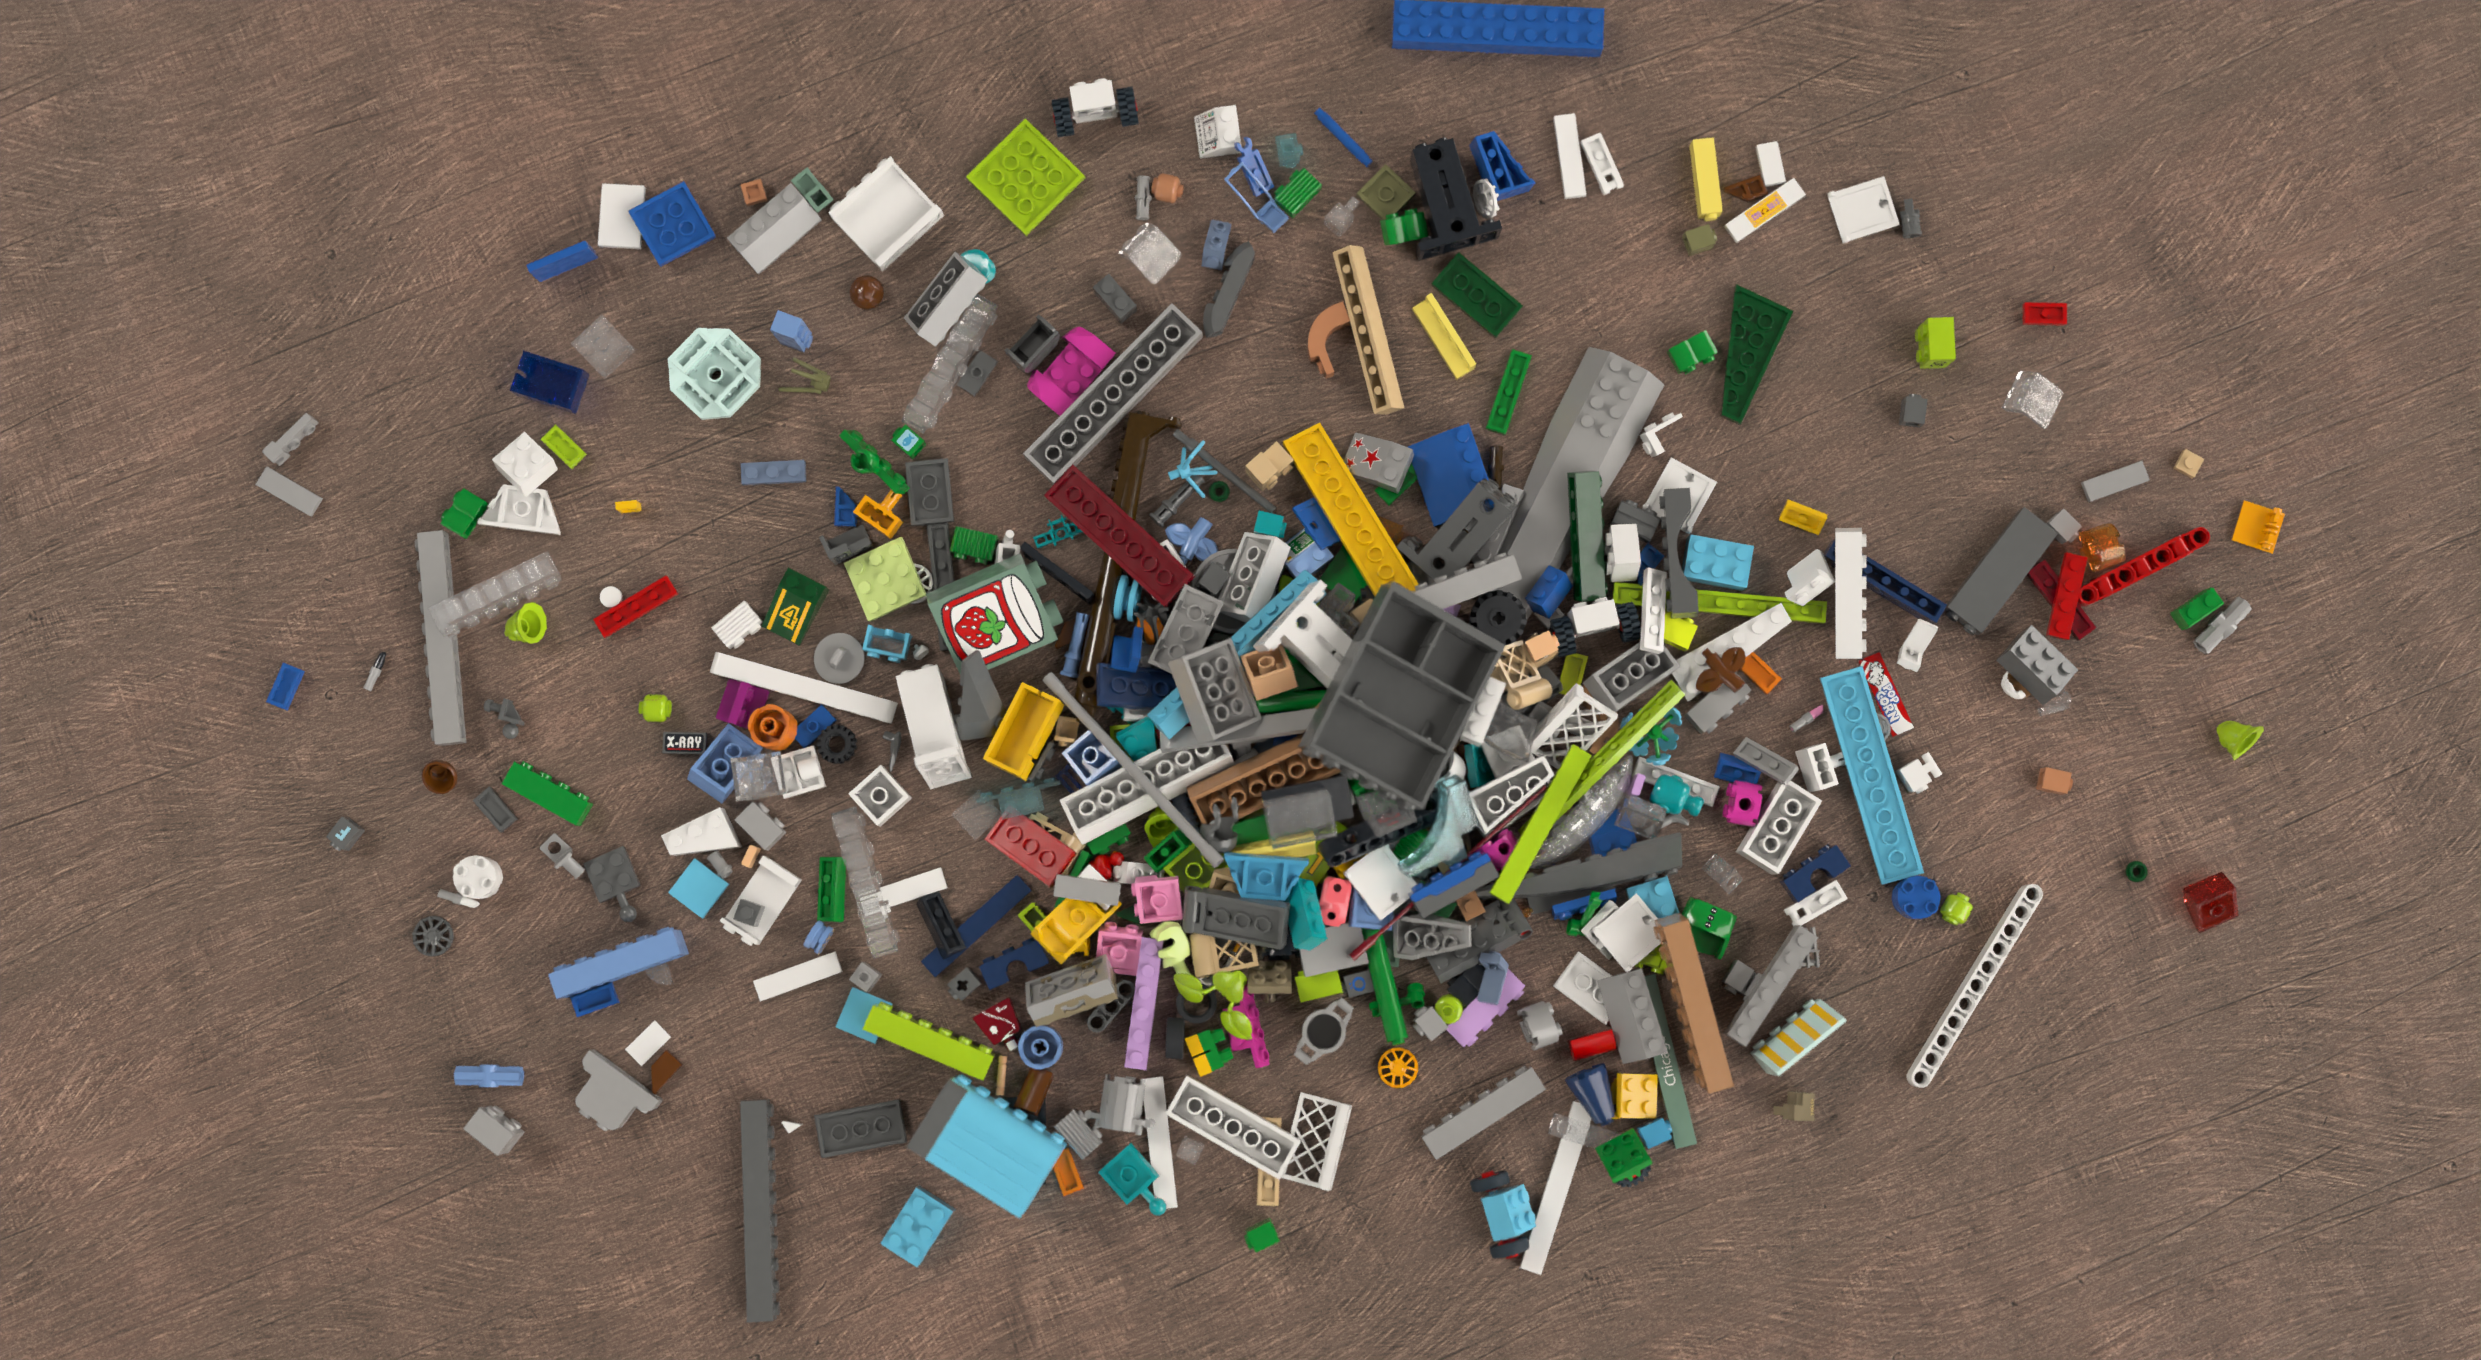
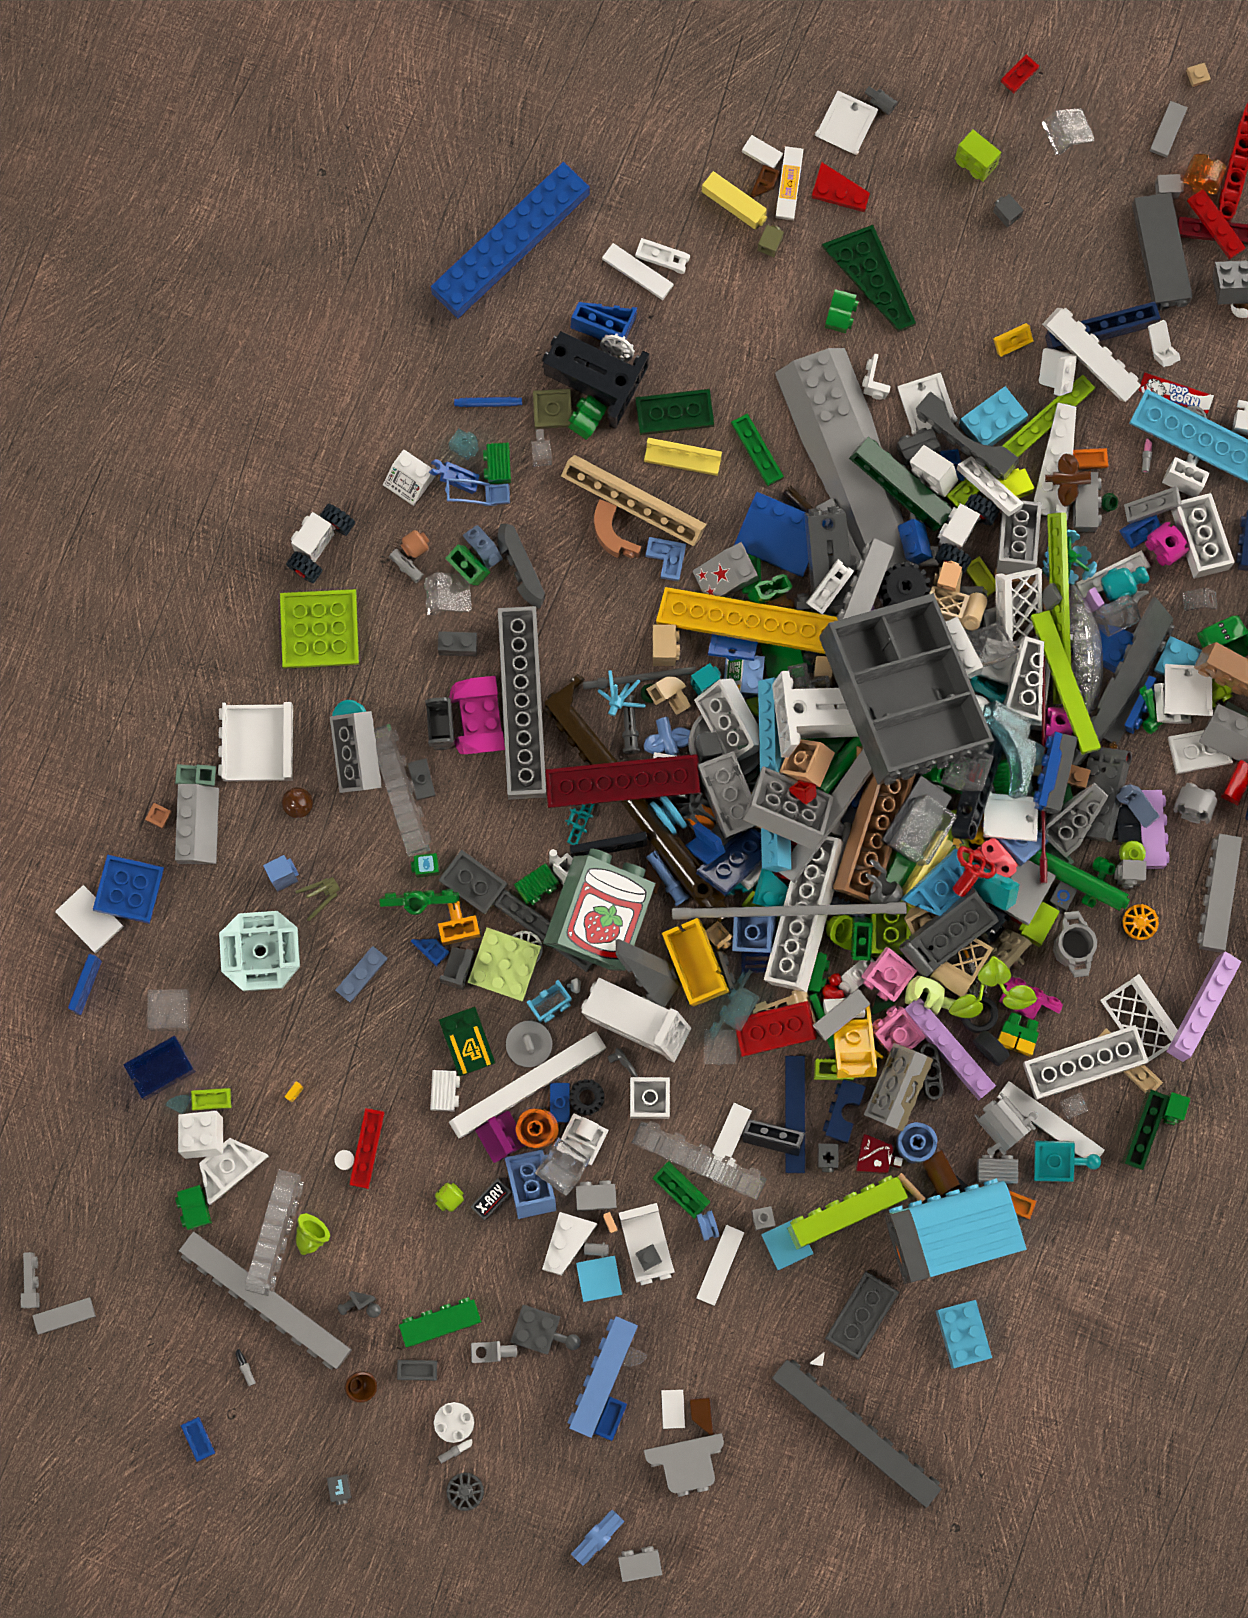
camera: 50 degrees left, 5 degrees down
(538, 424) = (179, 1103): none -> clear light blue tile
(1188, 246) = (467, 565): none -> green brick
(1222, 1226) = (1145, 1129): none -> dark green brick
(1235, 505) = (670, 689): none -> tan brick
(1240, 690) = (804, 791): none -> red slope
(1298, 891) = (972, 872): none -> red piece
(1352, 404) = (671, 553): none -> medium blue plate
(1370, 1184) = (1204, 1006): none -> lavender brick
(1391, 508) = (770, 590): none -> green brick
(1437, 556) = (829, 587): none -> white plate
(1603, 746) = (1051, 596): none -> dark grey tile
(1736, 722) = (1109, 502): none -> dark green plate
(1798, 256) = (839, 190): none -> red wing

